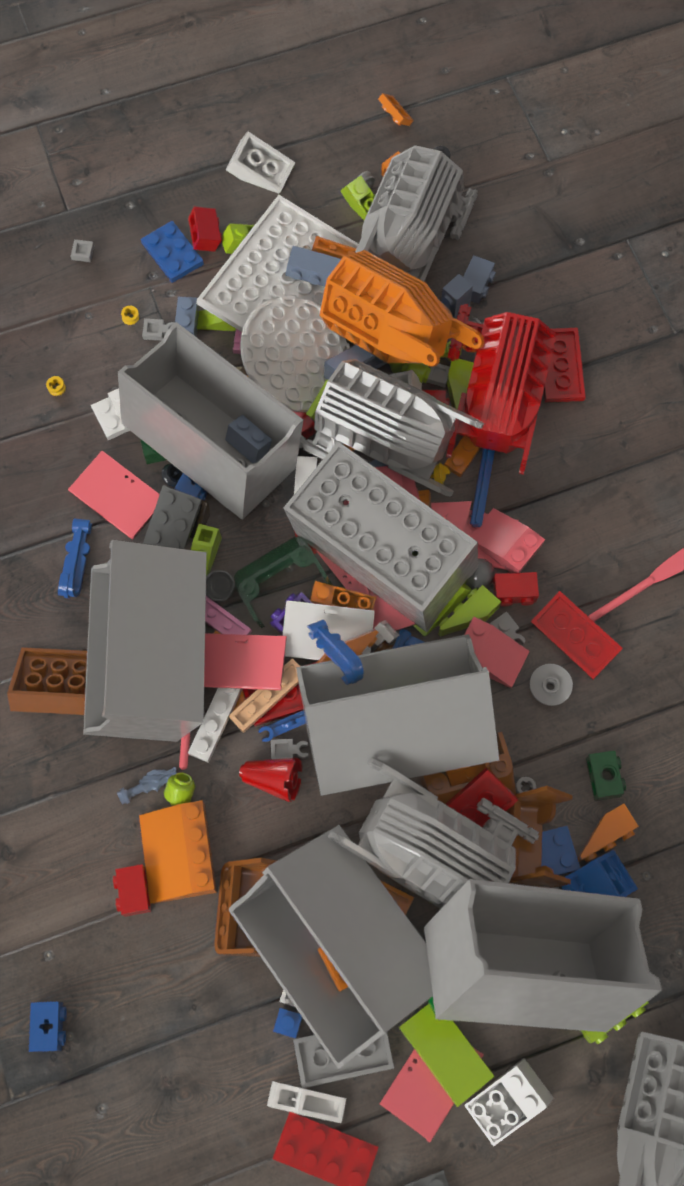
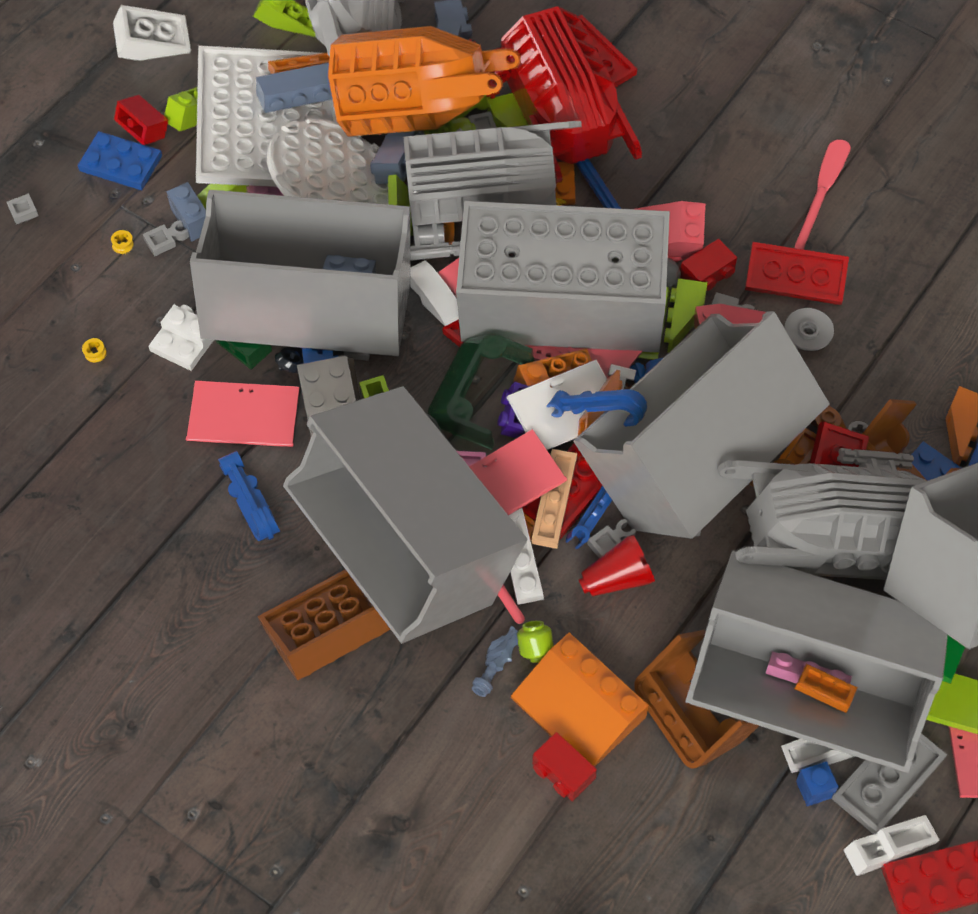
camera: 35 degrees left, 10 degrees down
(603, 788) = (925, 389): dark green brick -> none

